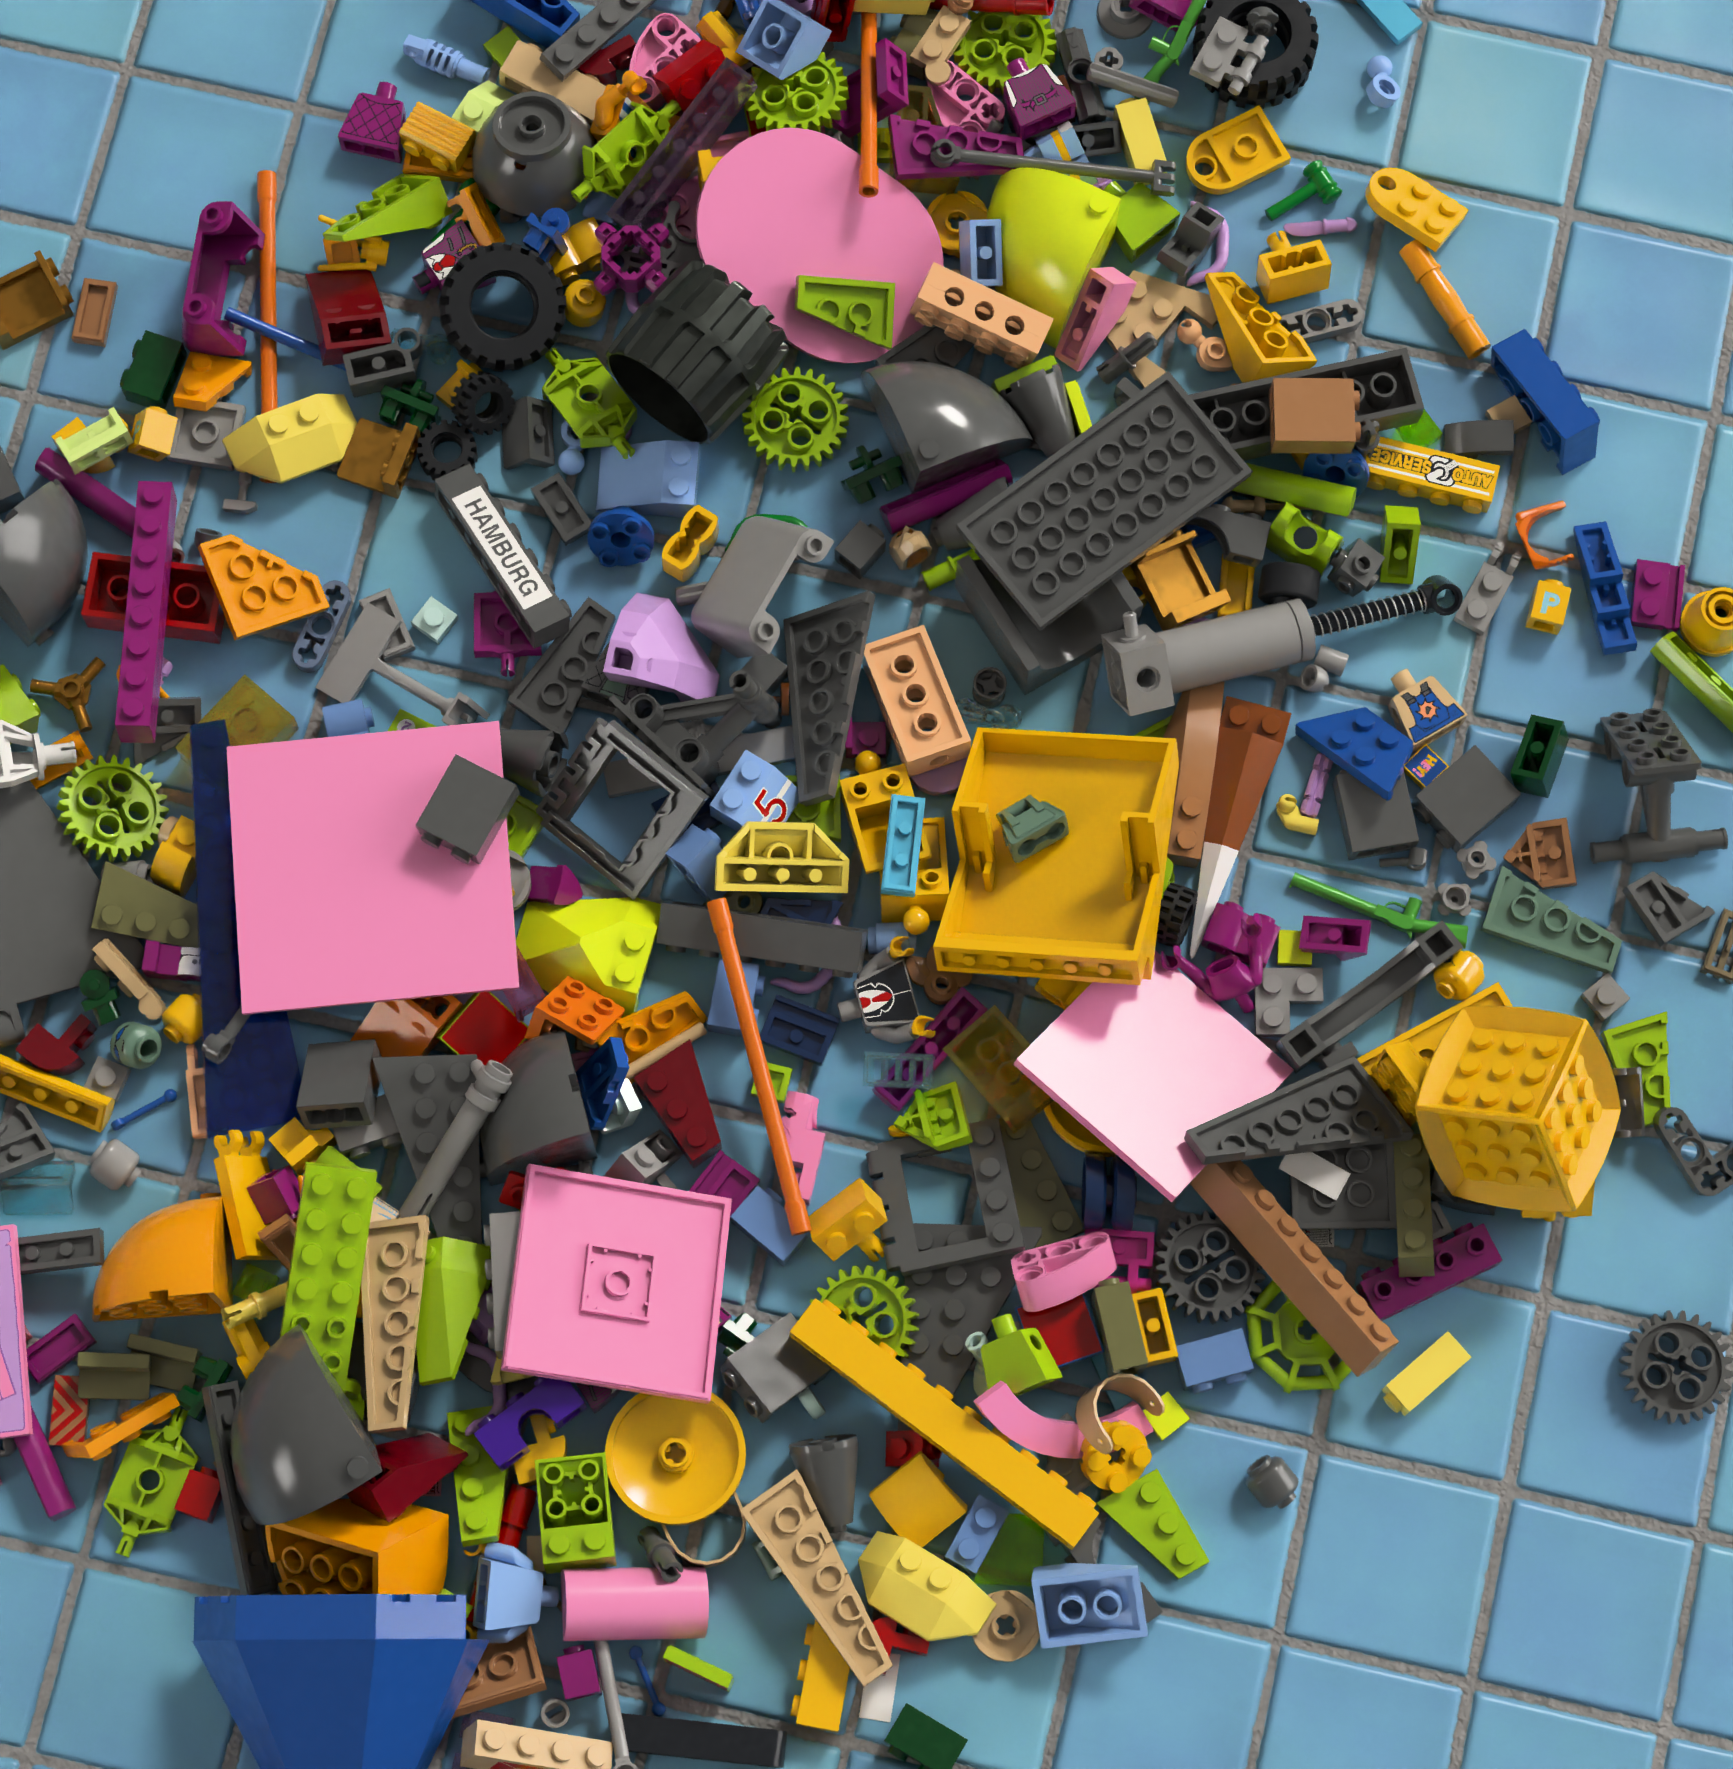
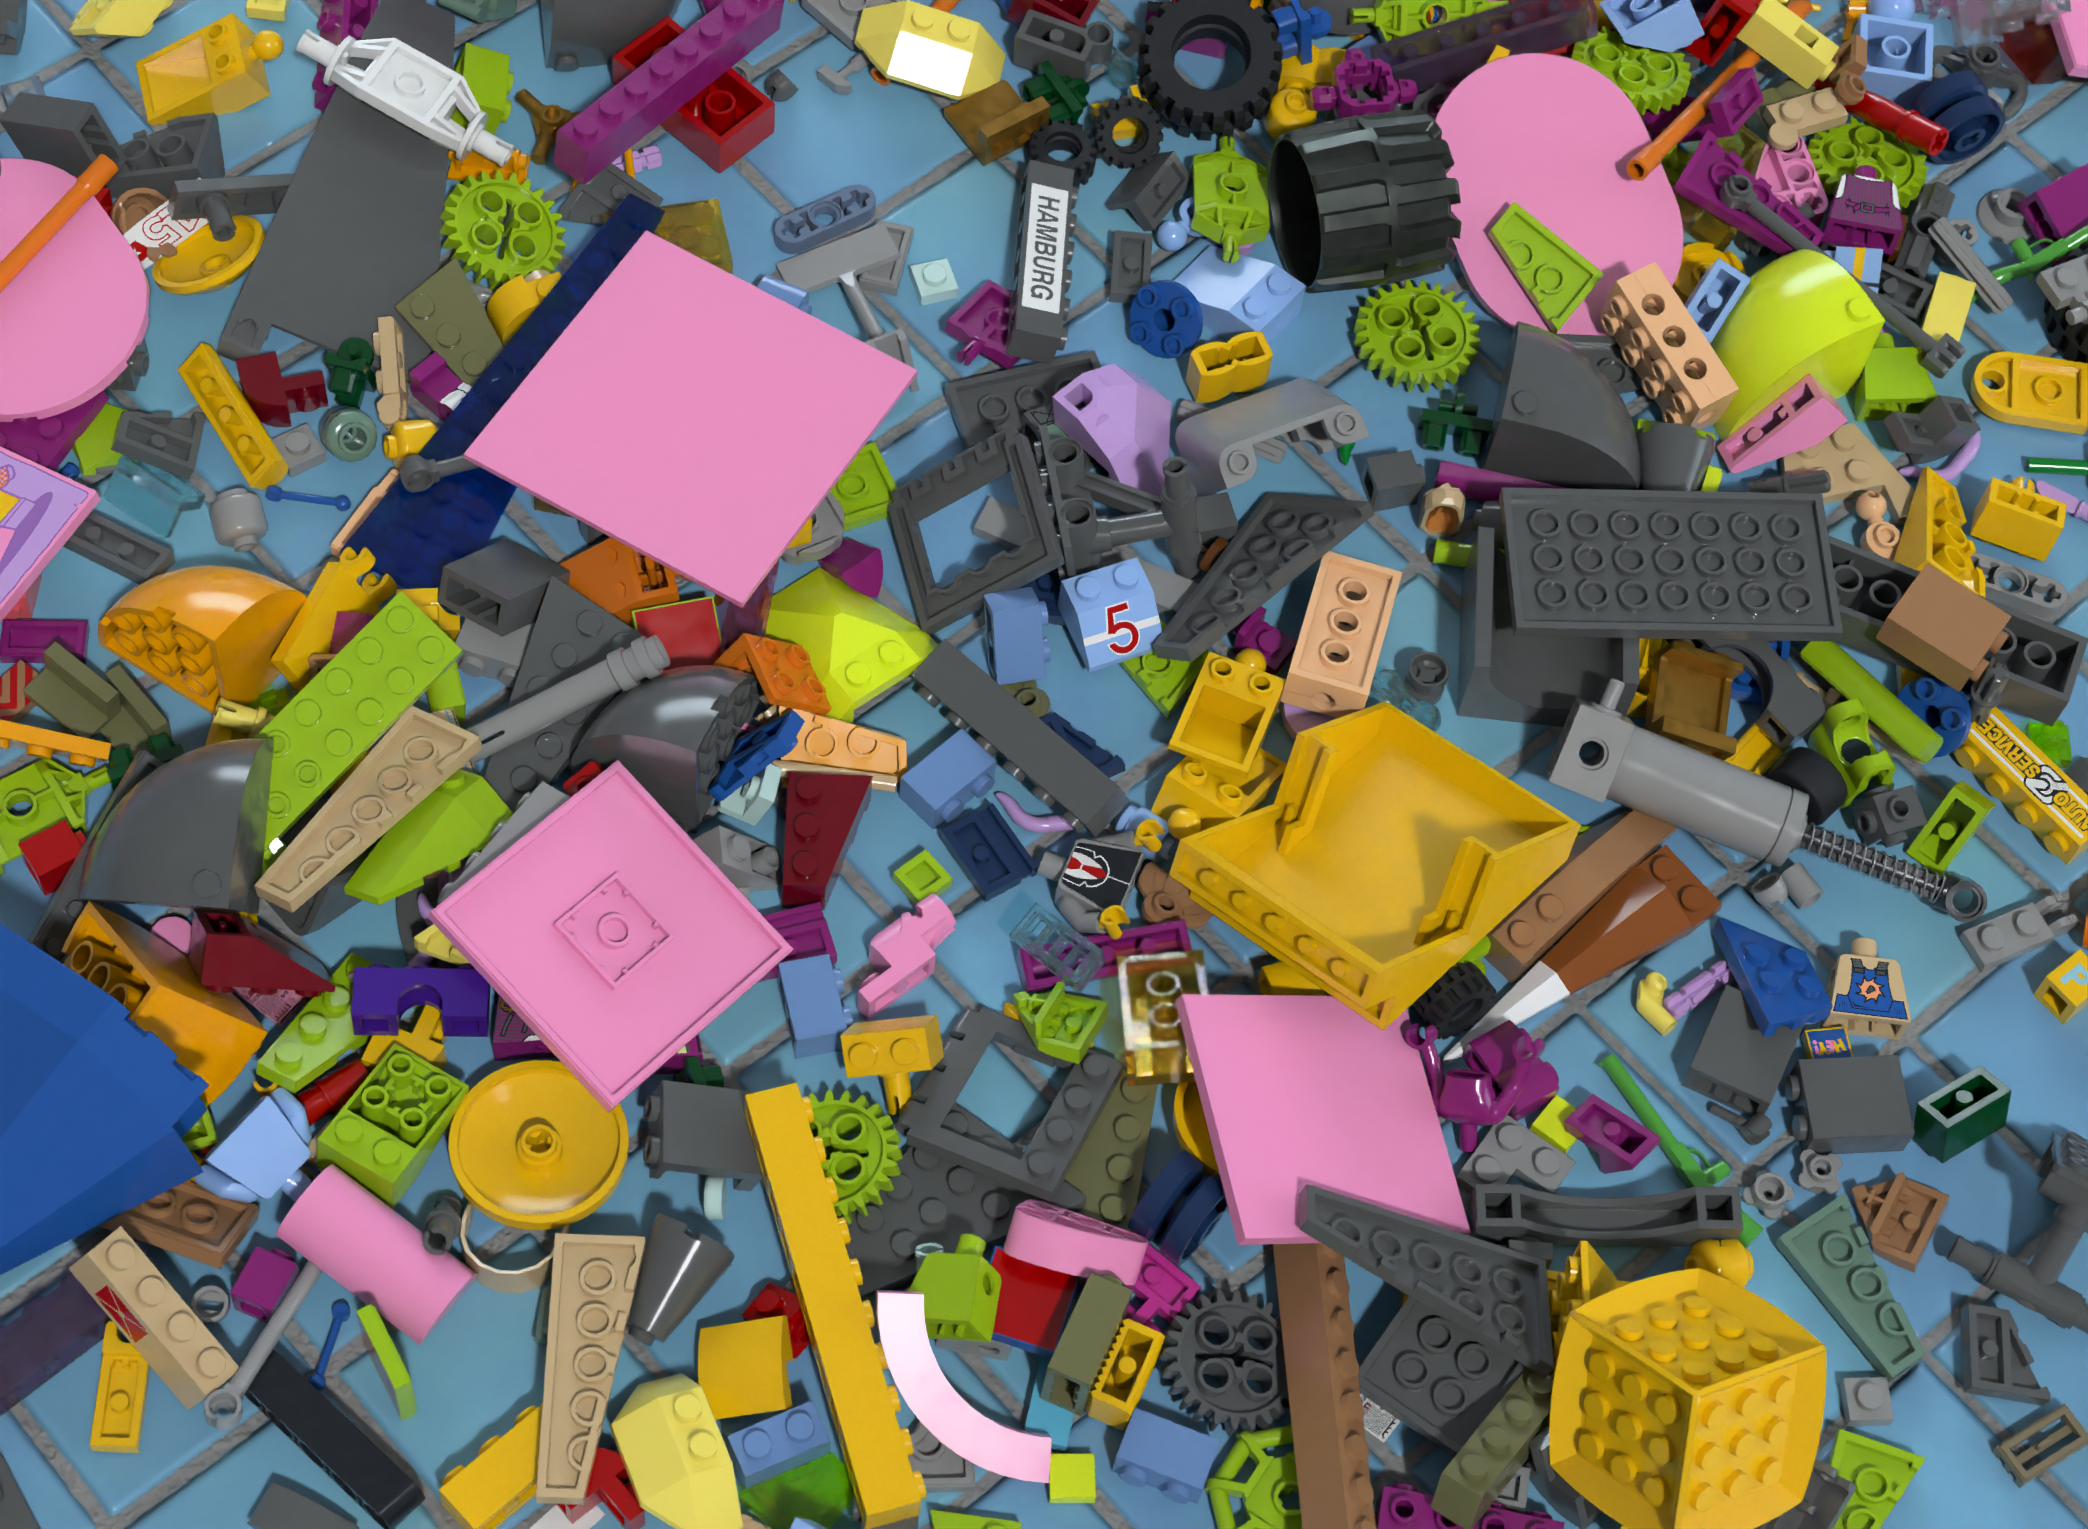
camera: 30 degrees right, 15 degrees down
(258, 587) = (792, 137): light orange plate -> none
(466, 810) = (821, 417): dark grey brick -> none
(533, 758) = (922, 436): dark grey cone -> none
(781, 860) = (1092, 680): light yellow wedge -> none
(794, 1204) = (851, 990): orange piece -> none
(902, 846) = (1224, 743): medium azure tile -> none
(1031, 827) = (1369, 817): sand green piece -> none
(1127, 1384) = (1045, 1398): tan piece -> none
(1127, 1468) = (964, 1456): yellow plate -> none
(1316, 1172) = (1417, 1338): white sticker -> none

